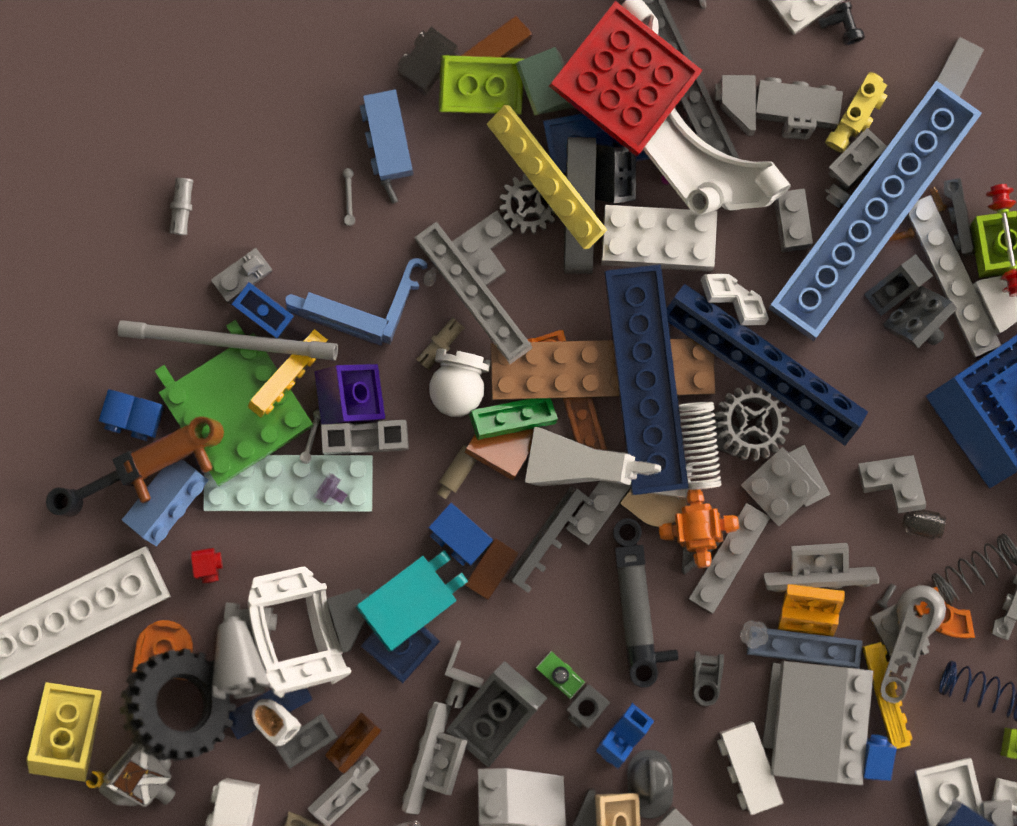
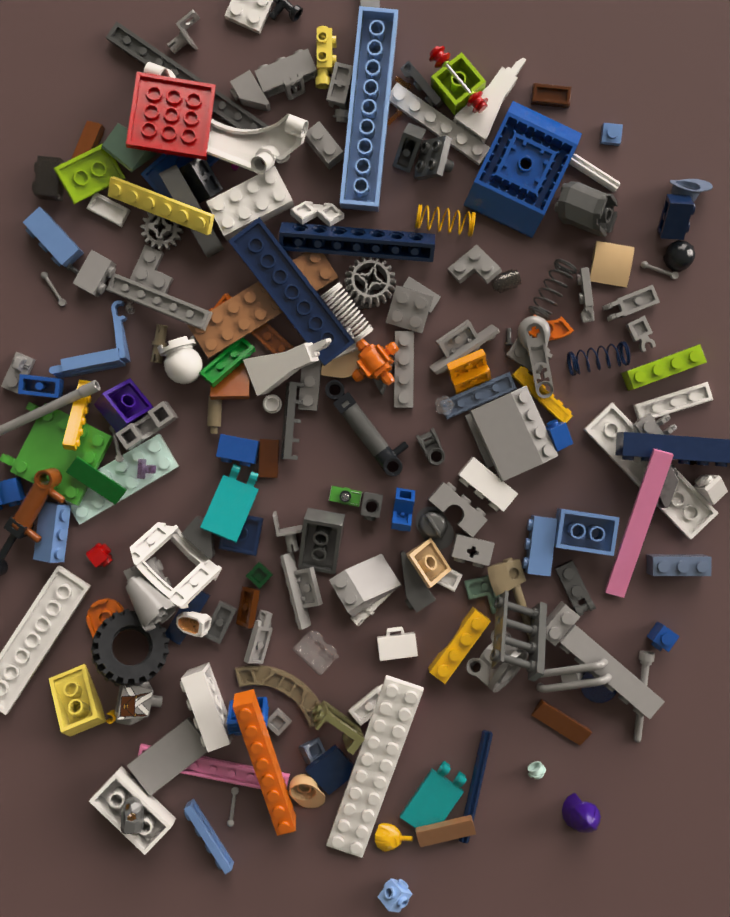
camera: 25 degrees left, 5 degrees up
(262, 469) = (96, 480): none -> green slope
(392, 710) = (259, 575): none -> dark green plate
(413, 210) = (95, 273): none -> light grey brick
(476, 140) = (108, 209): none -> white tile
(537, 502) = (272, 404): none -> white plate
(705, 799) = (471, 518): none -> light grey arch
(859, 381) = (471, 220): none -> yellow piece

